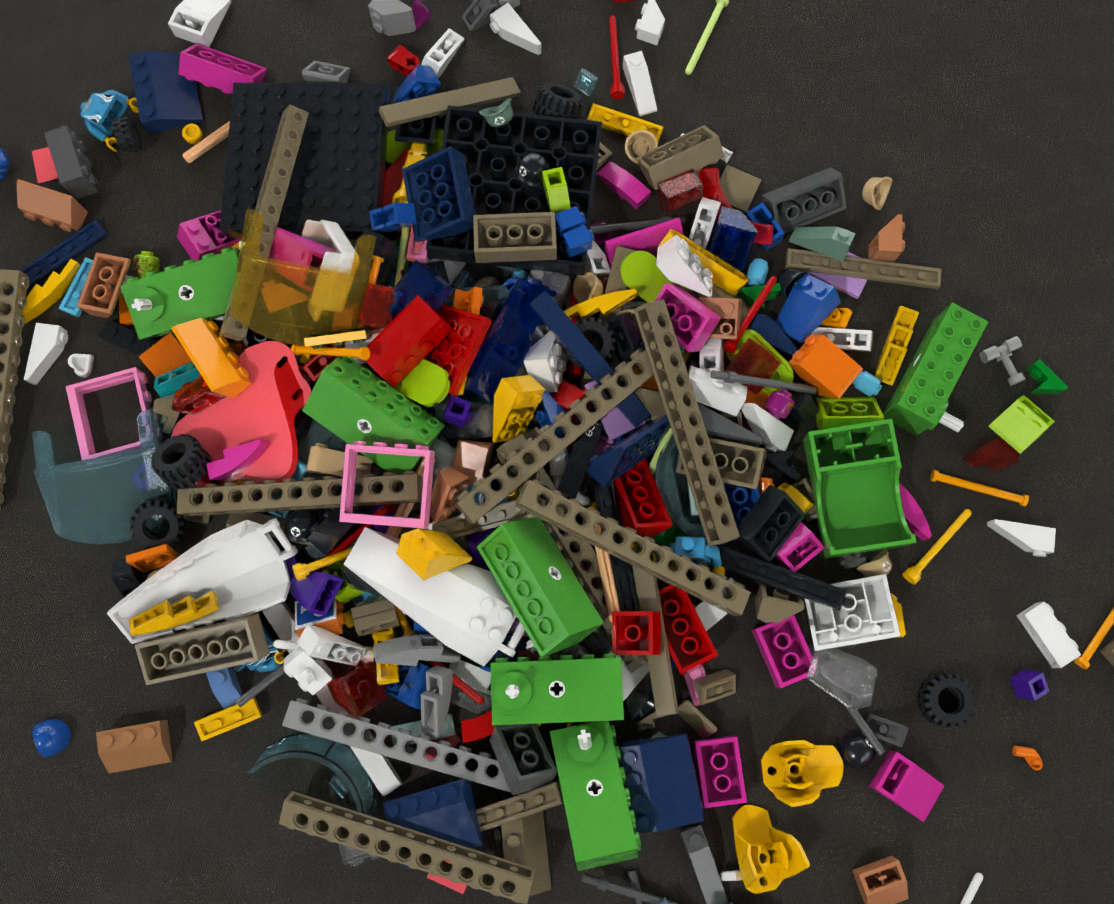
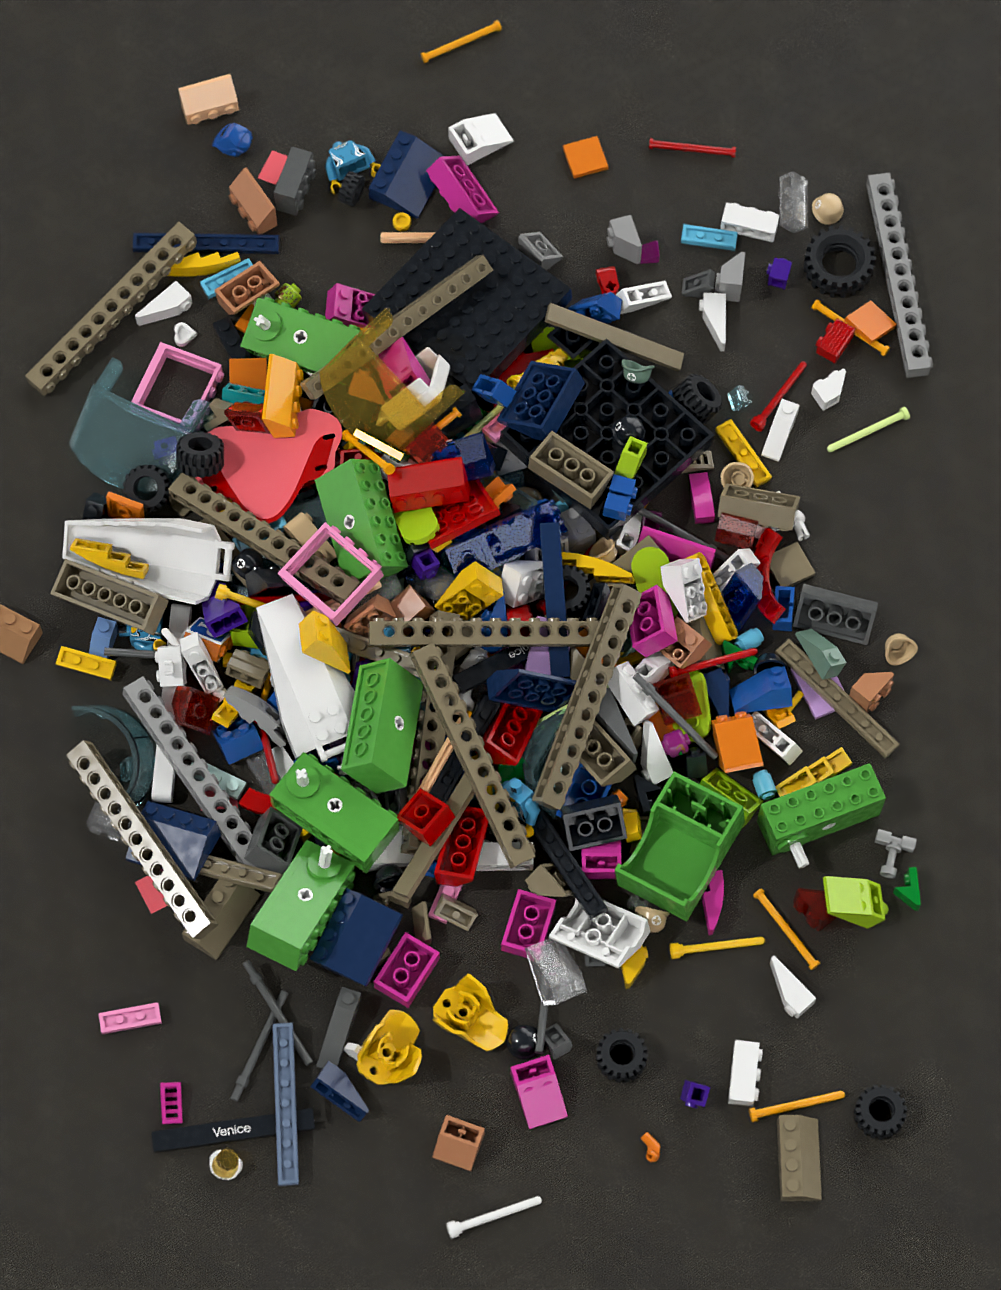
camera: 40 degrees right, 10 degrees down
(236, 459) = (240, 482): dark pink slope -> none
(436, 700) = (243, 759): light grey slope -> none

